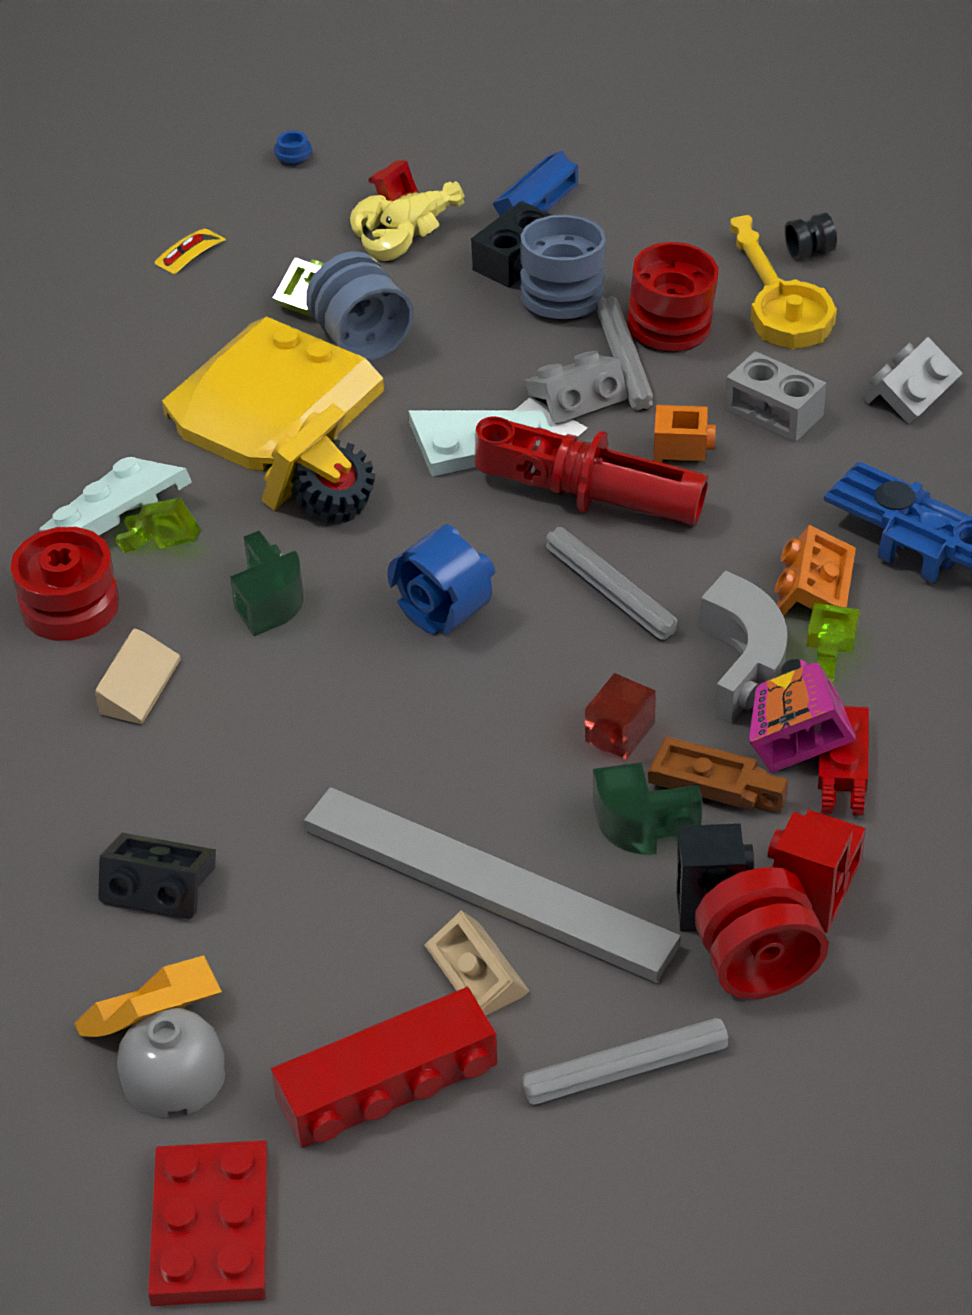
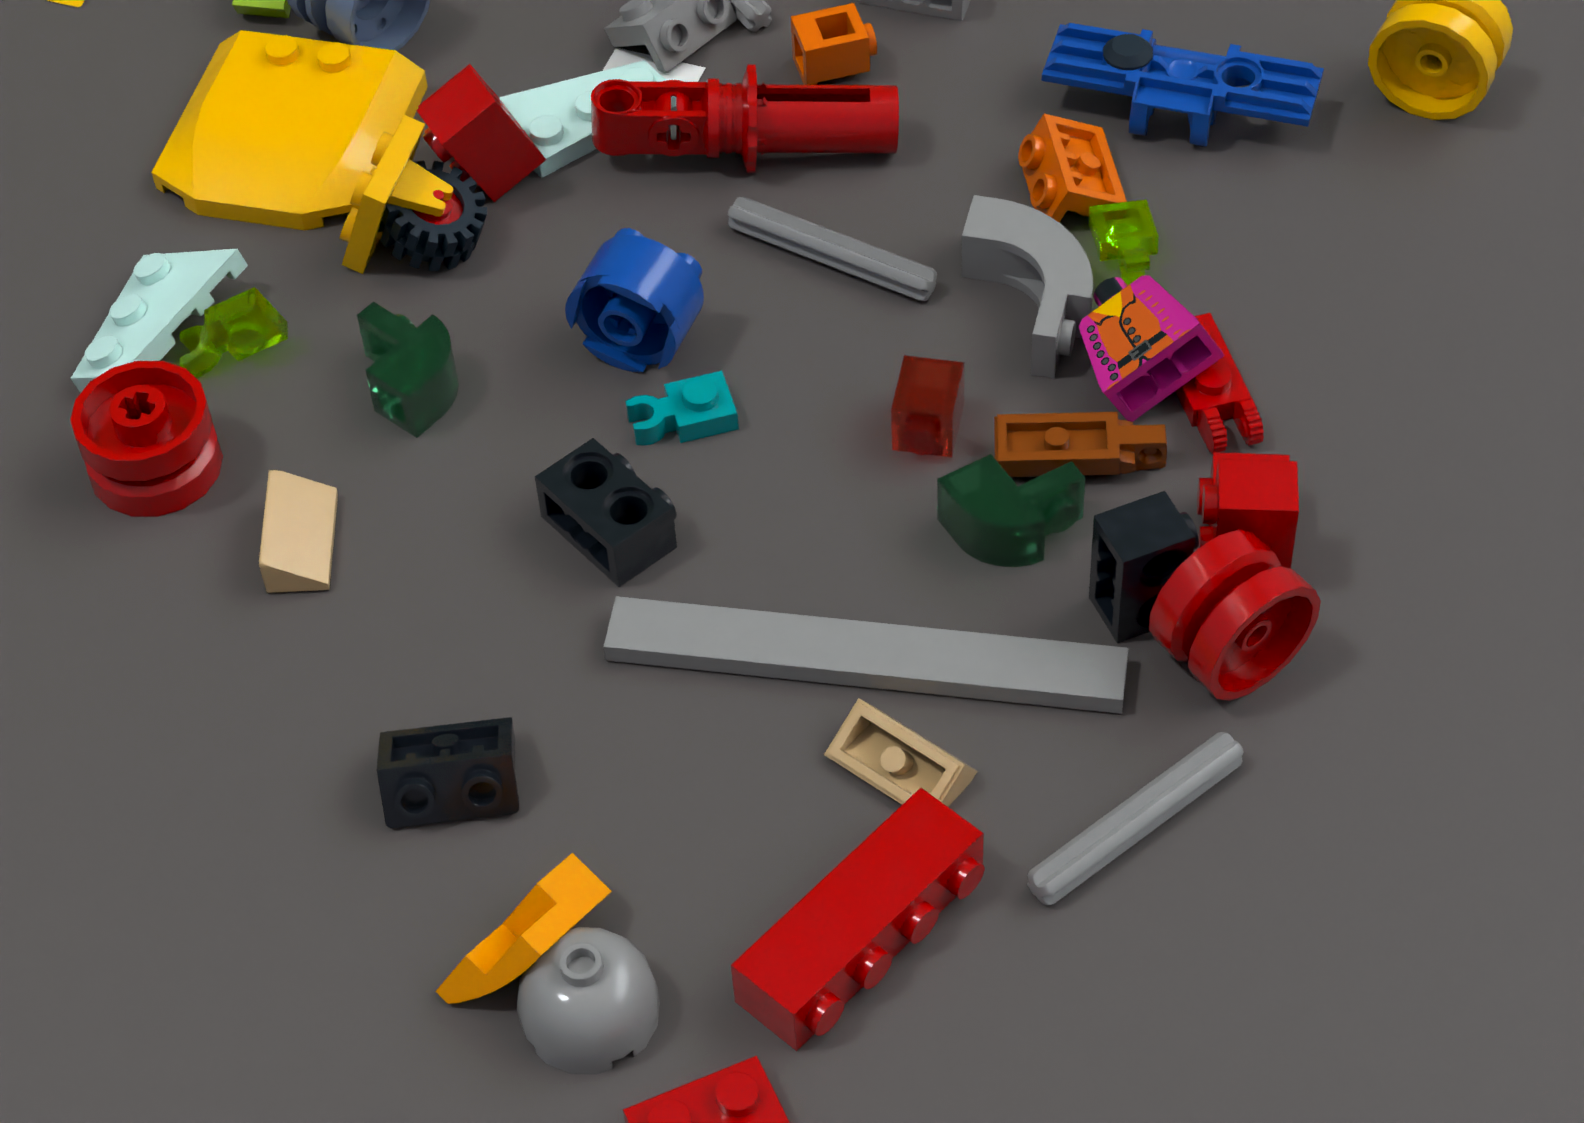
camera: 20 degrees left, 5 degrees up
(354, 724) = (607, 511): none -> black brick
(390, 430) = (479, 133): none -> red brick
(453, 670) = (690, 407): none -> teal plate

